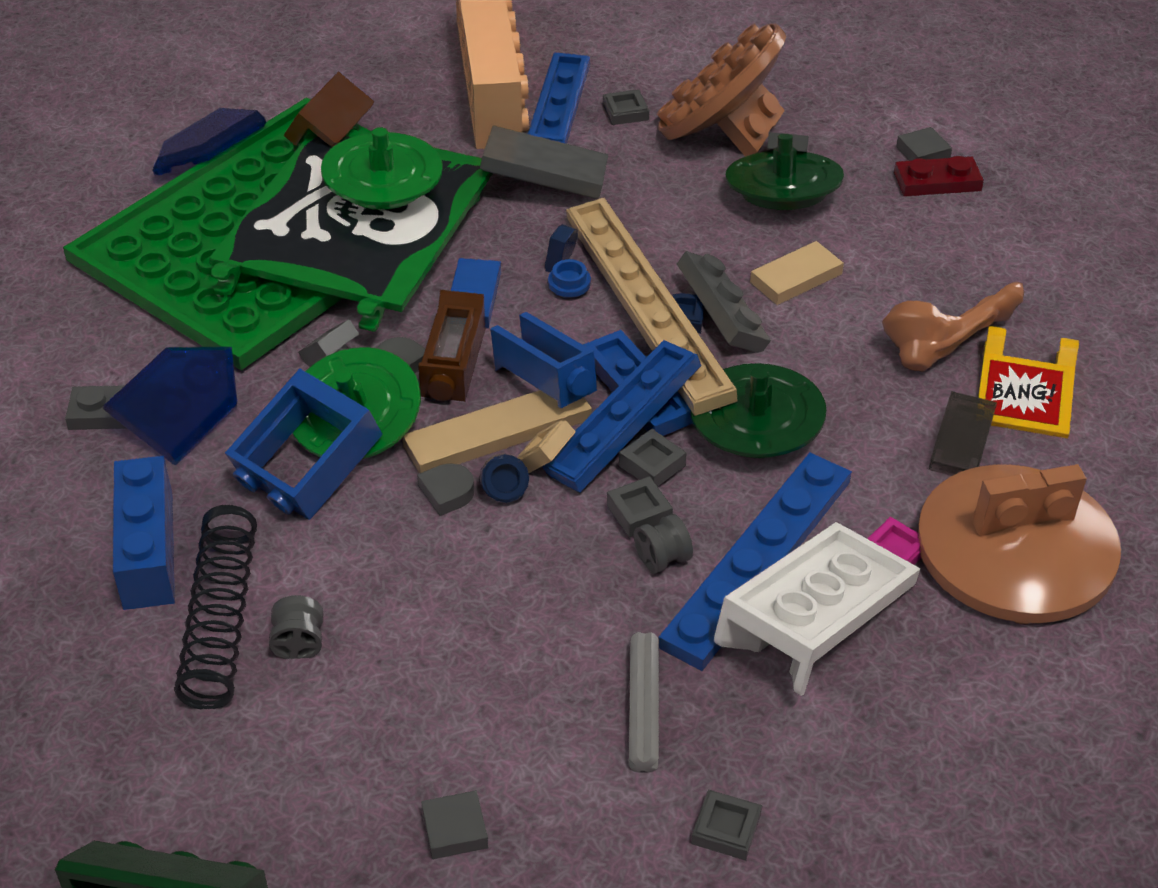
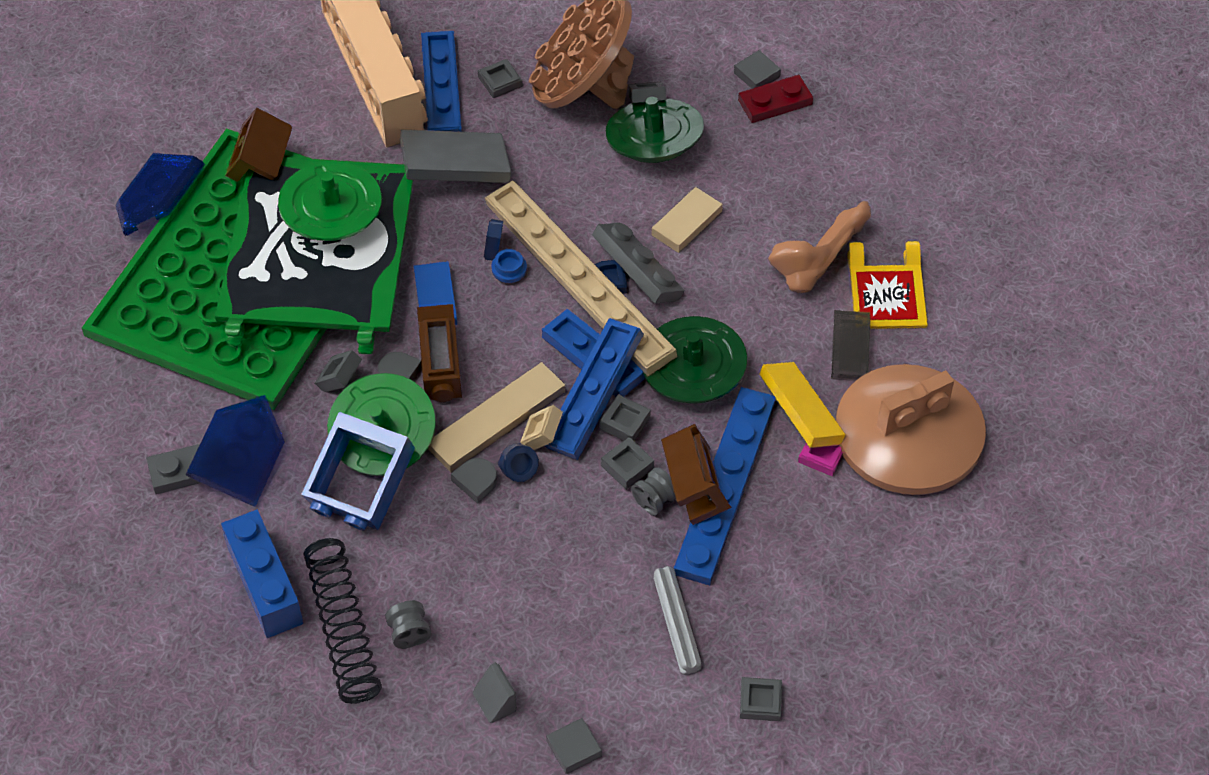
camera: 15 degrees left, 10 degrees up
(374, 736) = (495, 694): none -> dark grey slope
(546, 359) = (520, 352): blue window -> none
(716, 530) = (693, 474): none -> reddish brown window
(814, 598) = (780, 512): white plate -> none
(882, 486) = (802, 404): none -> yellow tile

